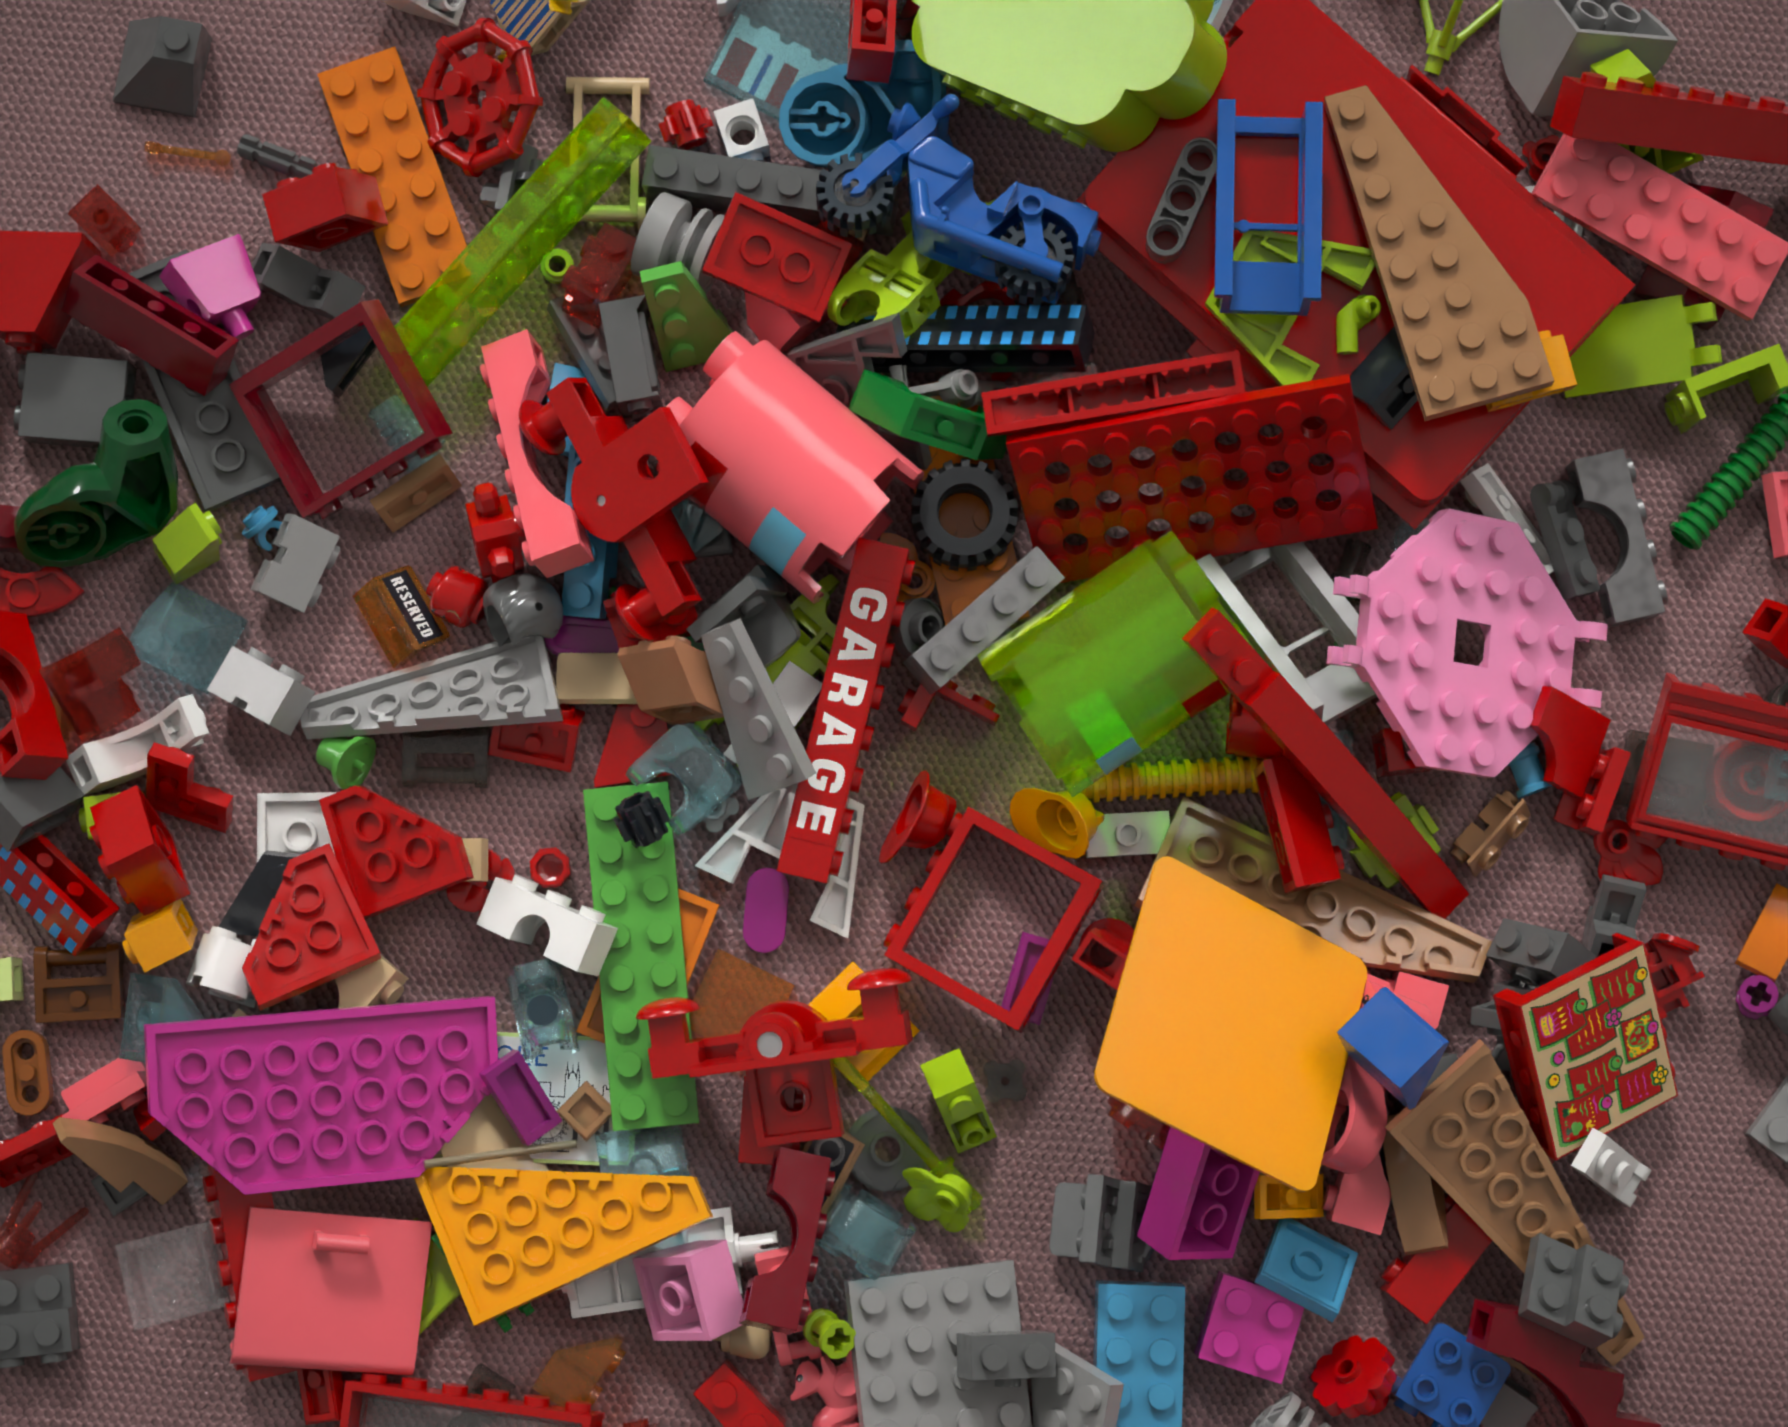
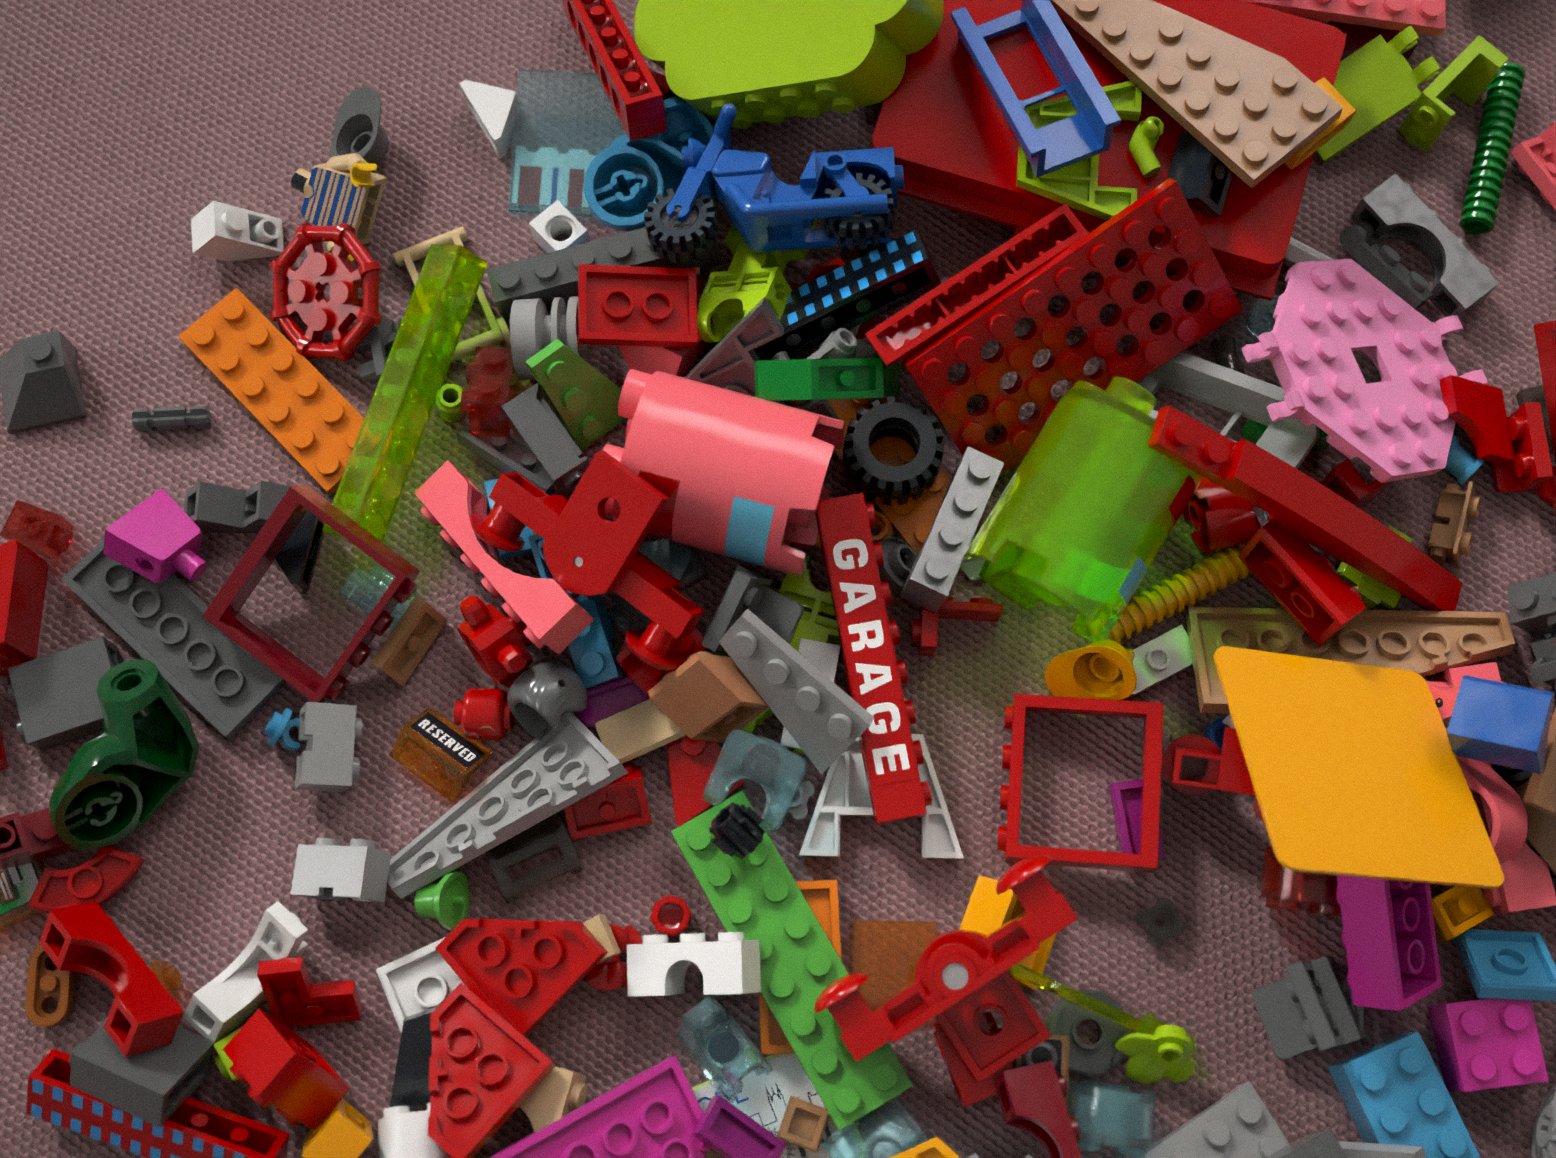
camera: 25 degrees left, 10 degrees down
(91, 685) = (178, 935): clear red brick -> none
(149, 325) = (109, 595): dark red brick -> none
(186, 635) = (251, 857): clear light blue slope -> none
(188, 543) = (221, 771): lime slope -> none
(221, 157) = (122, 438): clear orange hinge -> none
(324, 208) = (227, 434): red brick -> none
(686, 124) = (509, 244): red gear -> none
(766, 910) = (879, 867): magenta tile -> none
(922, 819) = (977, 725): red piece -> none
(958, 1100) = (1130, 957): lime slope -> none
(1187, 180) = (963, 93): dark grey beam -> none

